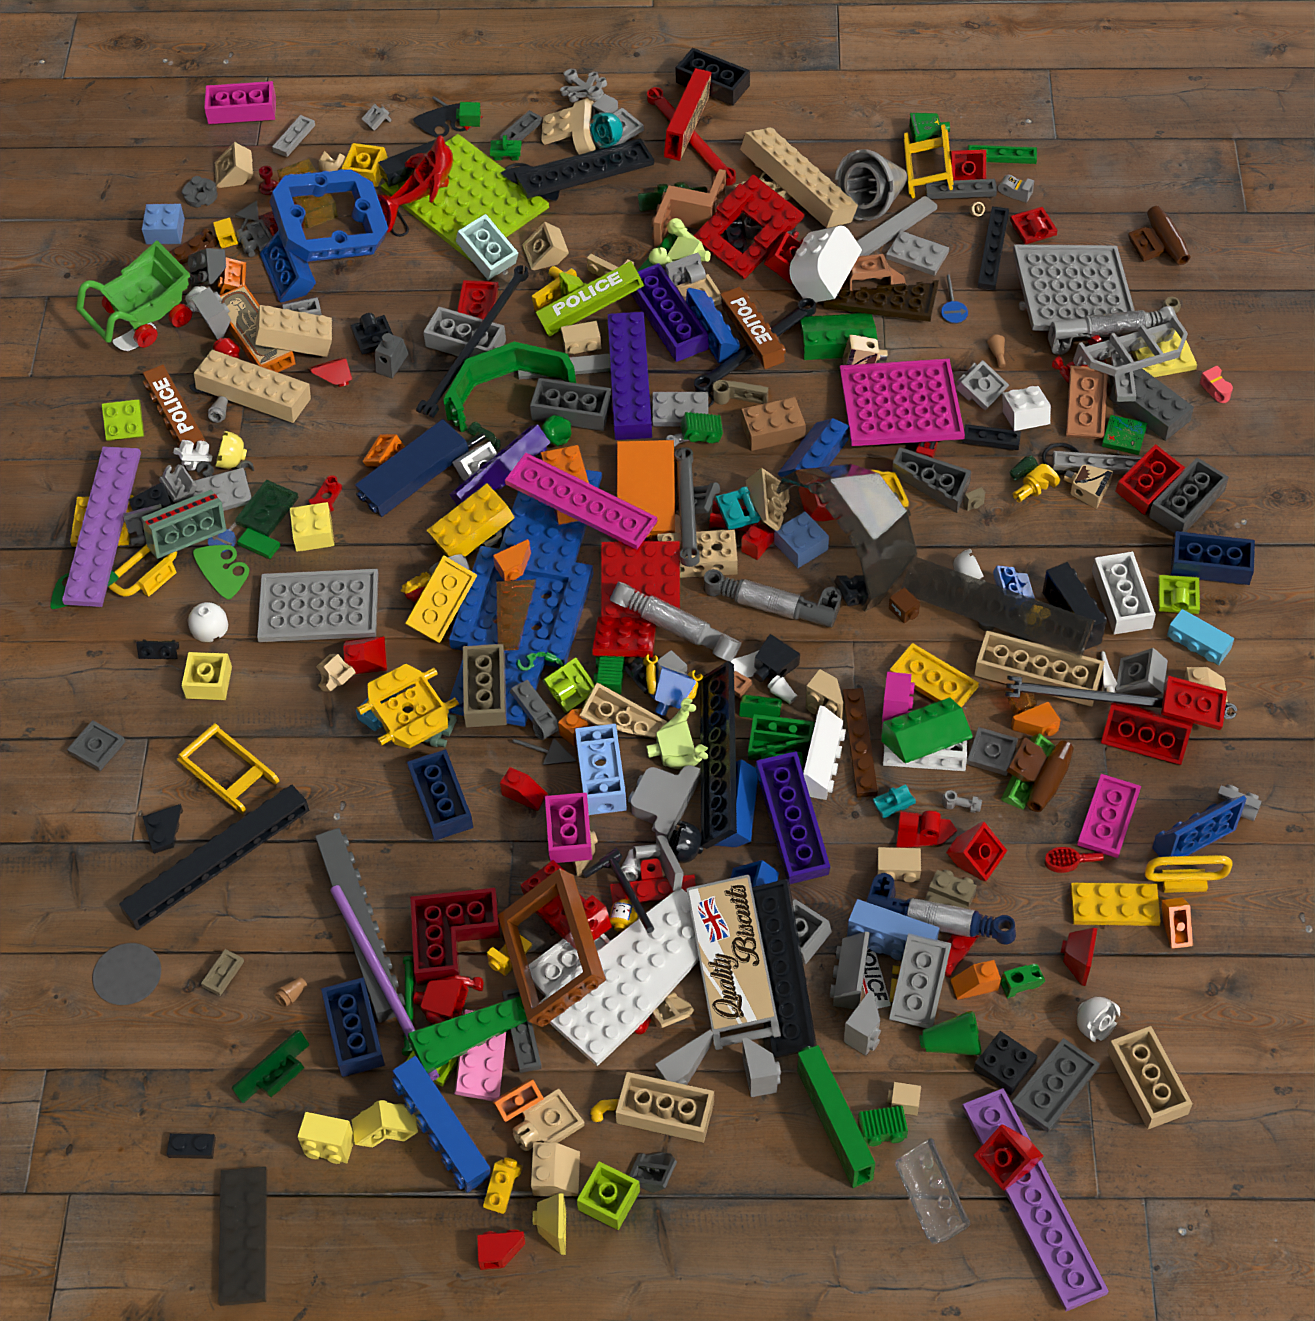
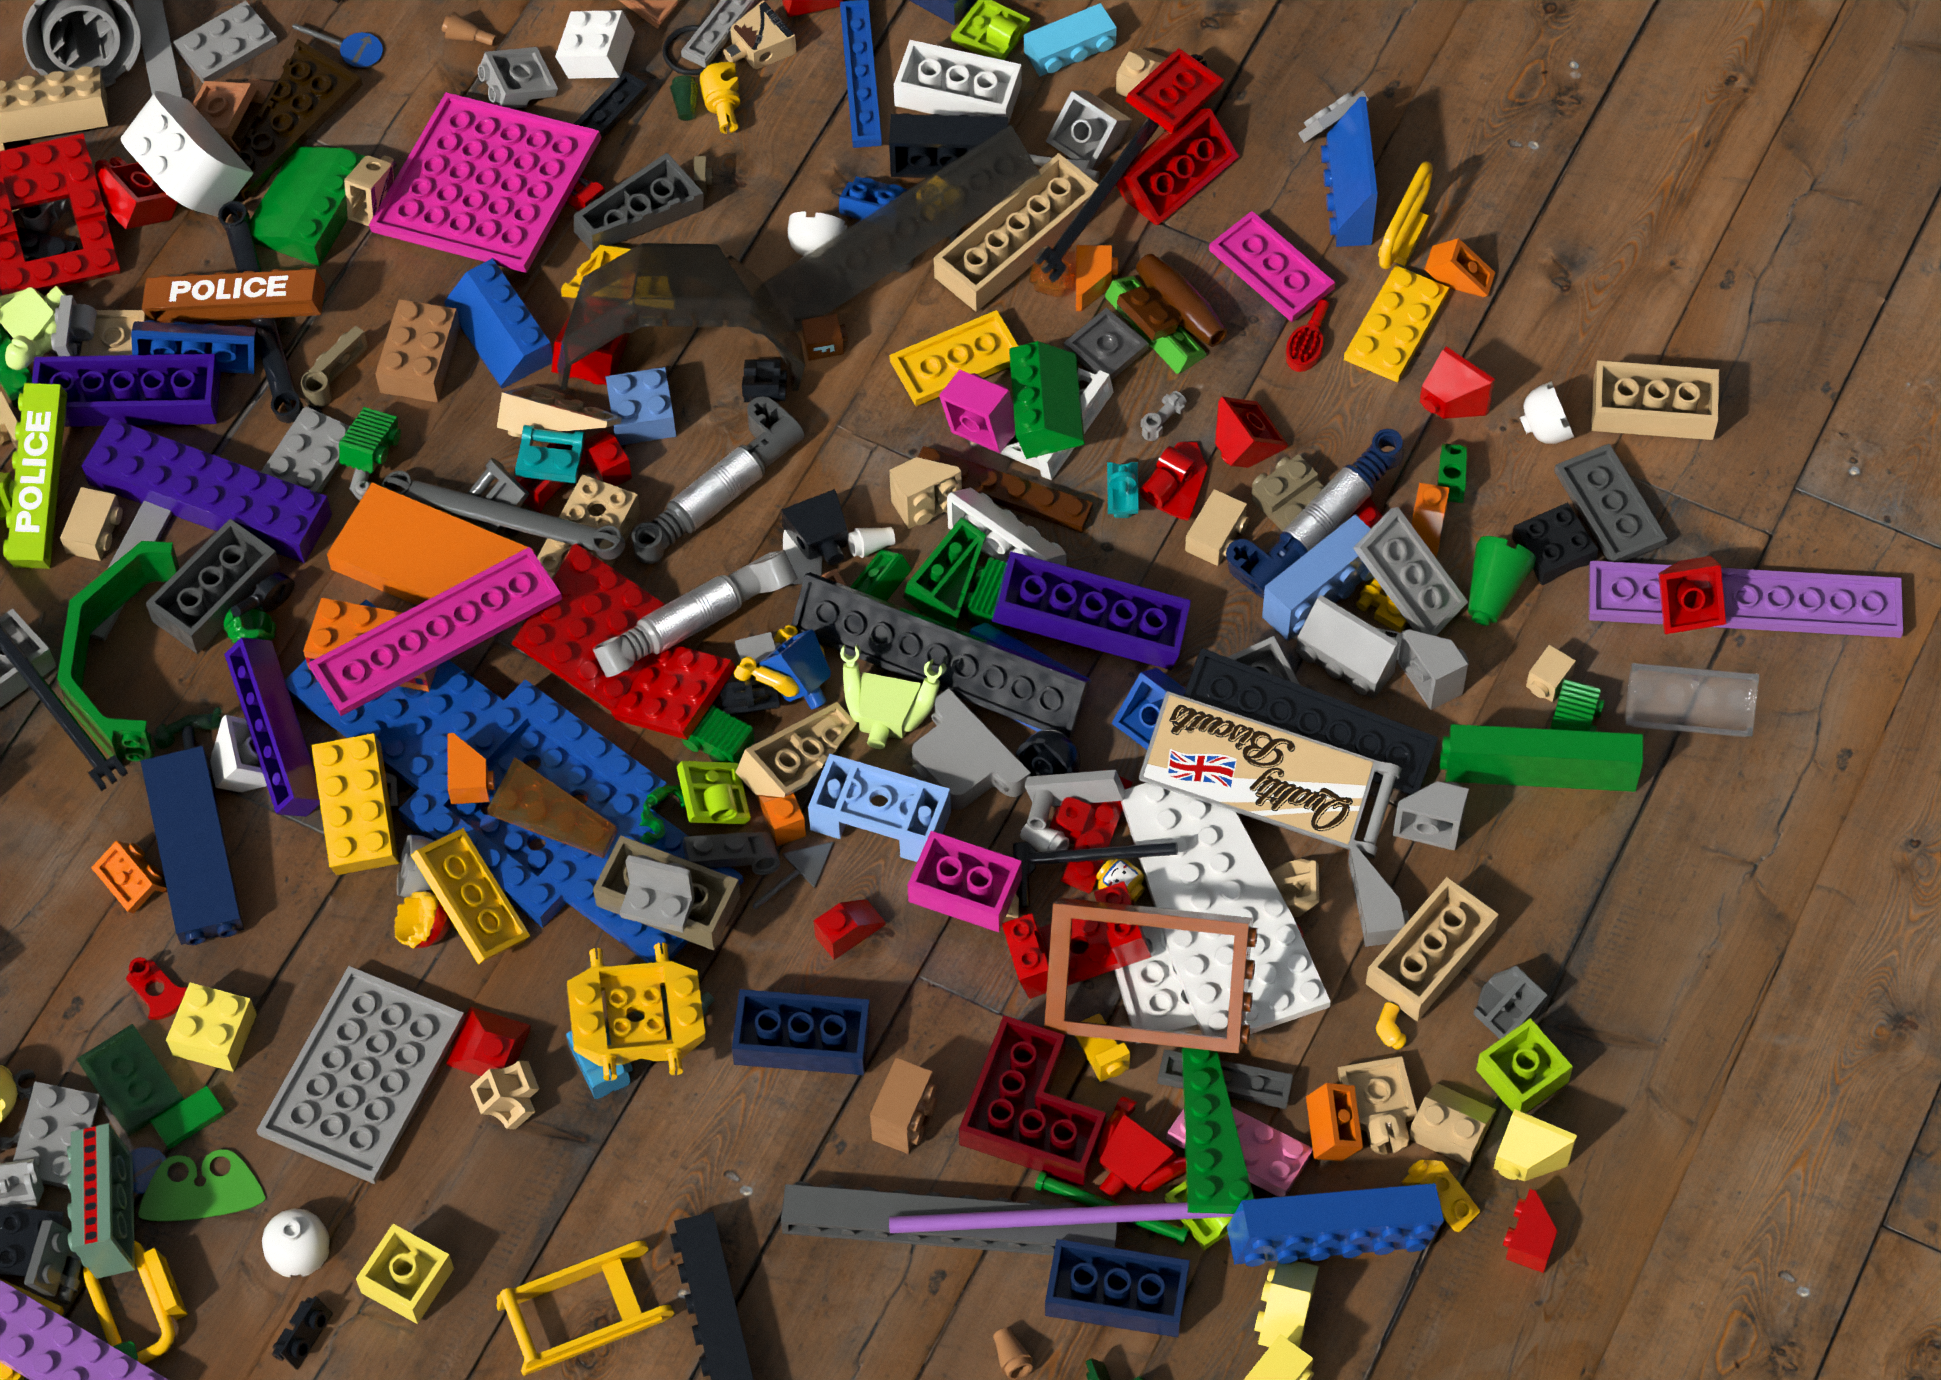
camera: 65 degrees left, 5 degrees up
(415, 864) = (903, 1106): none -> medium nougat brick
(468, 676) = (658, 893): none -> light grey bracket
(578, 428) = (268, 596): none -> black piece
(1104, 541) = (860, 73): none -> blue plate

